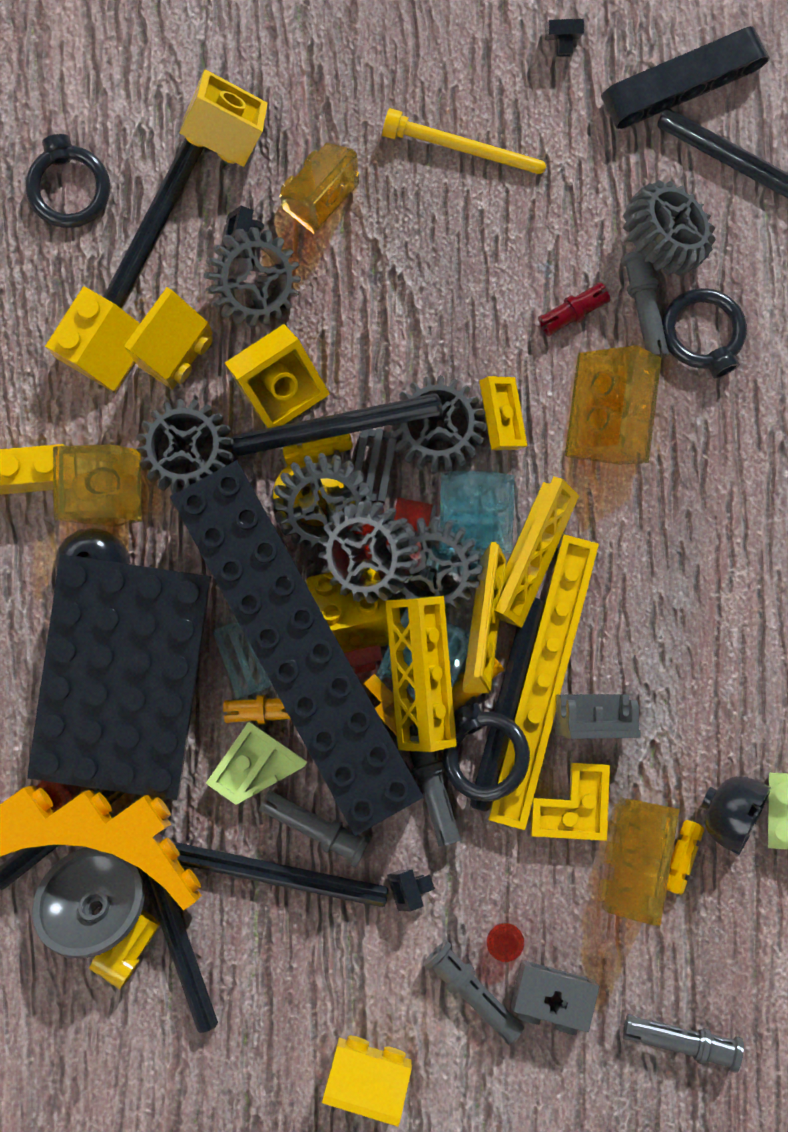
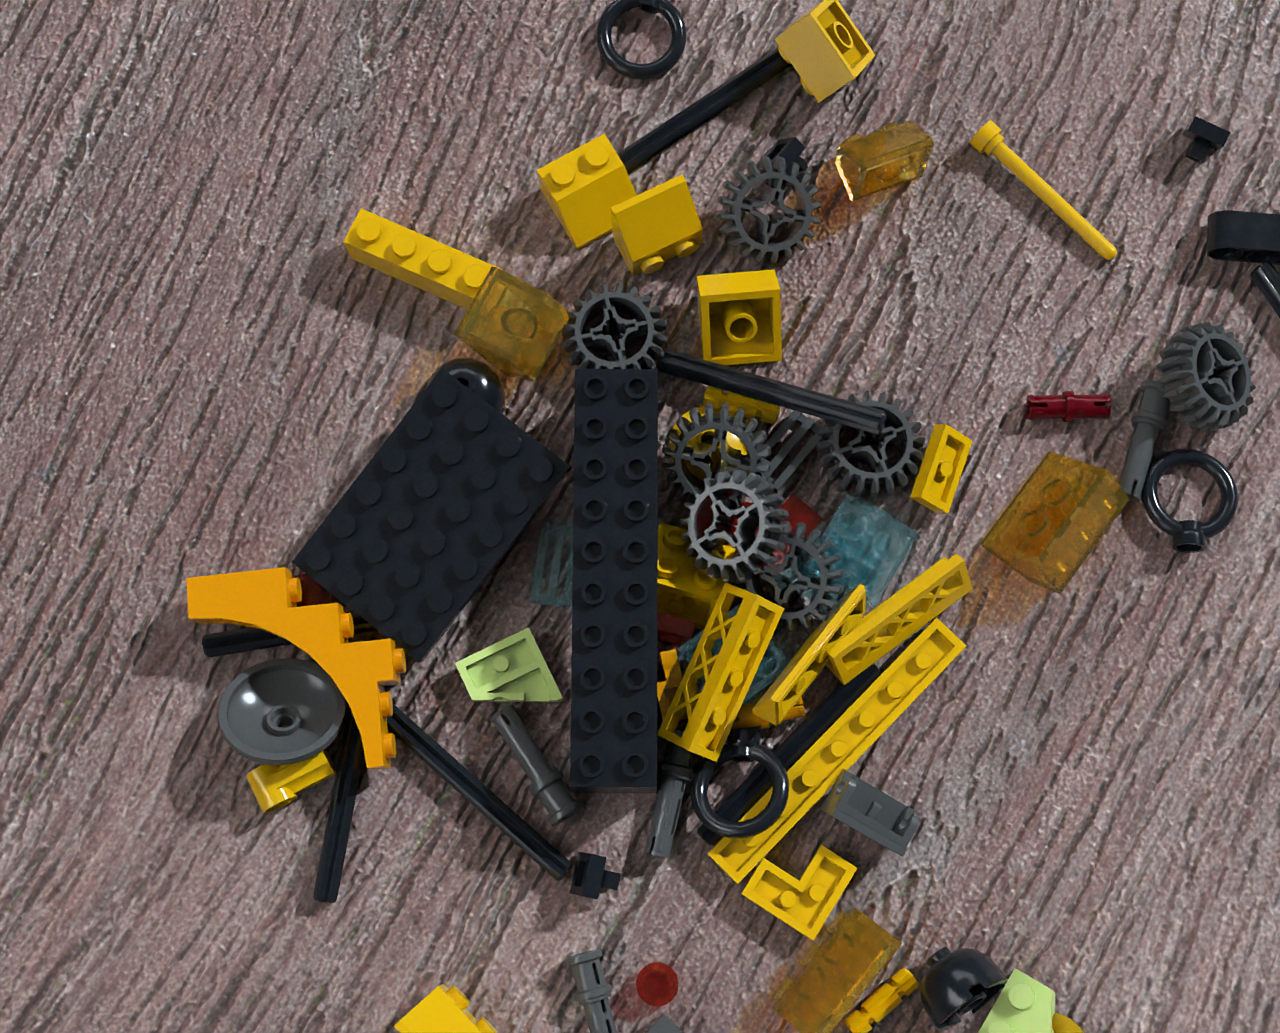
camera: 30 degrees right, 5 degrees down
(256, 709) = (542, 621): light orange pin -> none

